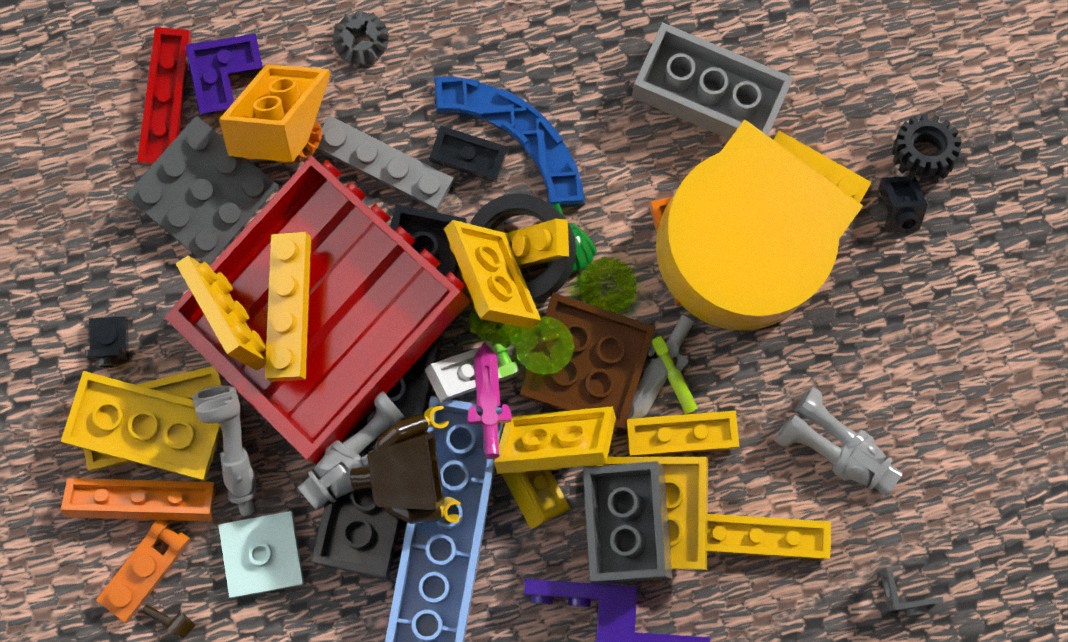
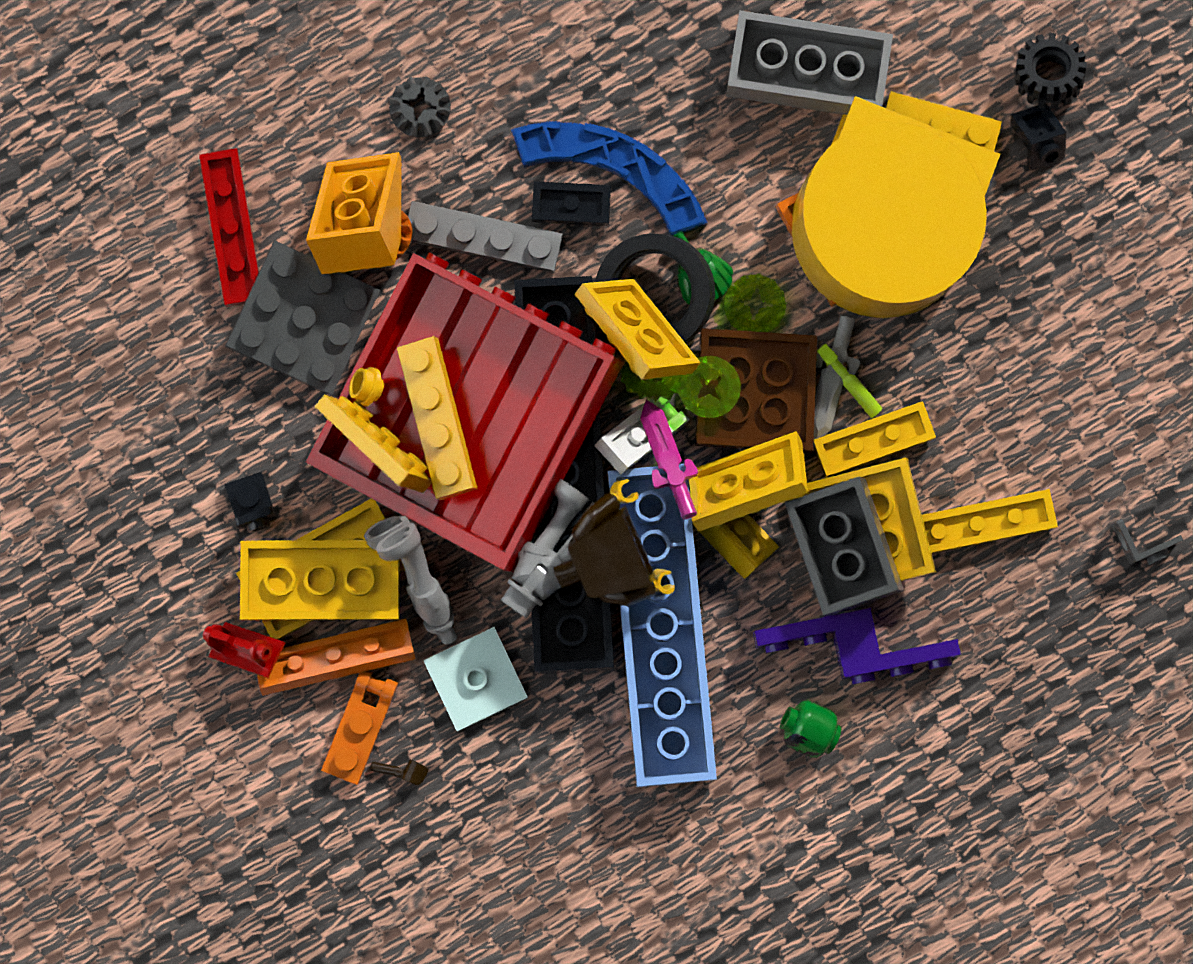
camera: 15 degrees left, 5 degrees up
(58, 468) = (243, 648): none -> red hinge
(213, 64) = (272, 182): dark purple plate -> none
(234, 262) = (366, 386): none -> yellow plate
(540, 242) = (675, 281): yellow plate -> none
(858, 456) = (1060, 414): light grey piece -> none

